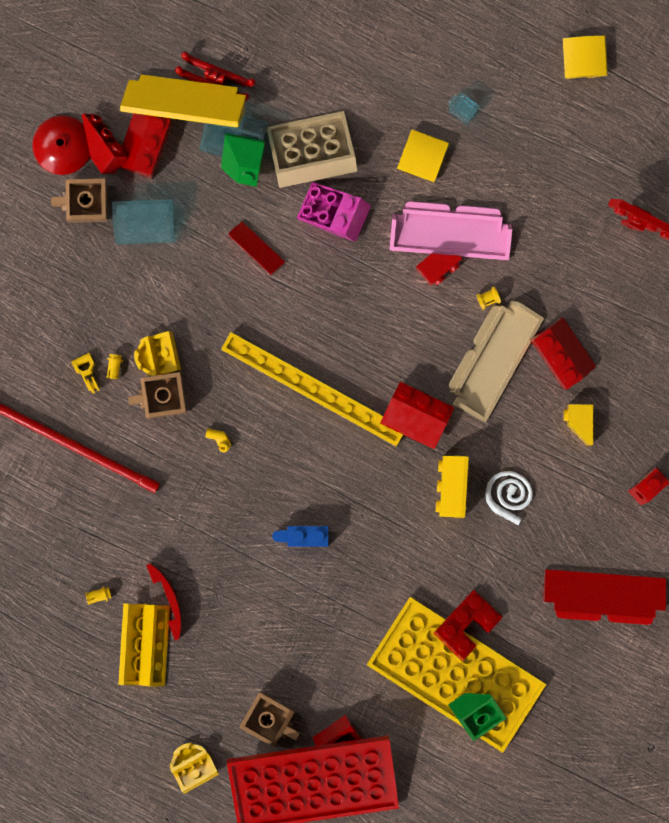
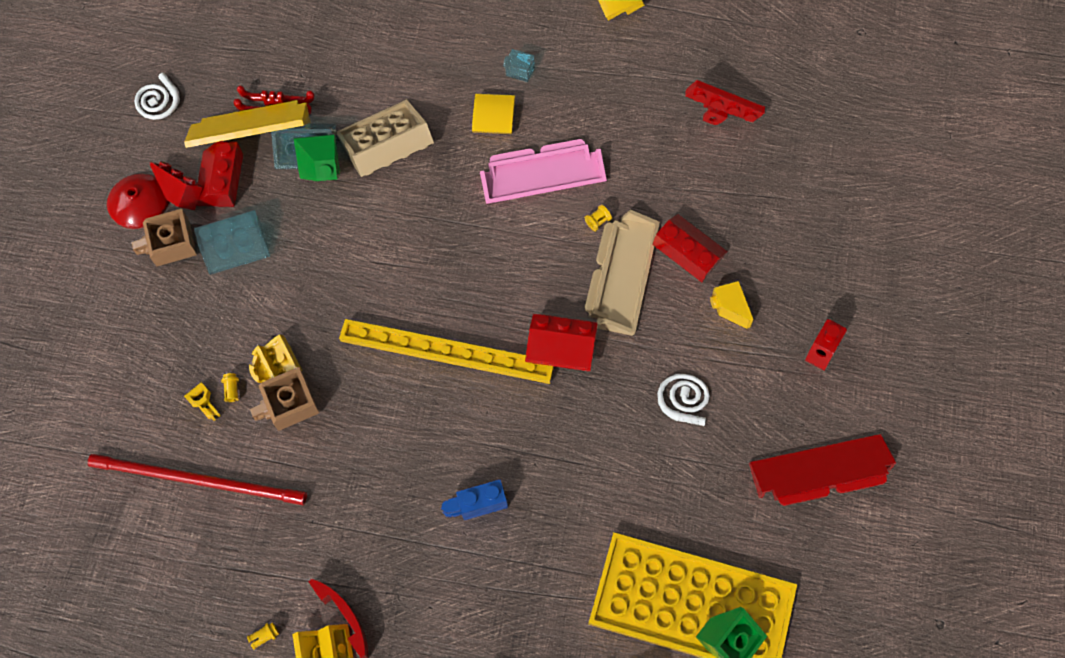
camera: 15 degrees left, 20 degrees down
(96, 37) = (154, 101): none -> white piece
(220, 437) = (361, 427): yellow arm -> none
(256, 248) = (352, 238): red slope -> none
(334, 211) = (422, 183): dark pink slope -> none
(436, 266) = (537, 203): red slope -> none
(452, 486) = (622, 402): yellow slope -> none
(452, 628) = (671, 550): red plate -> none

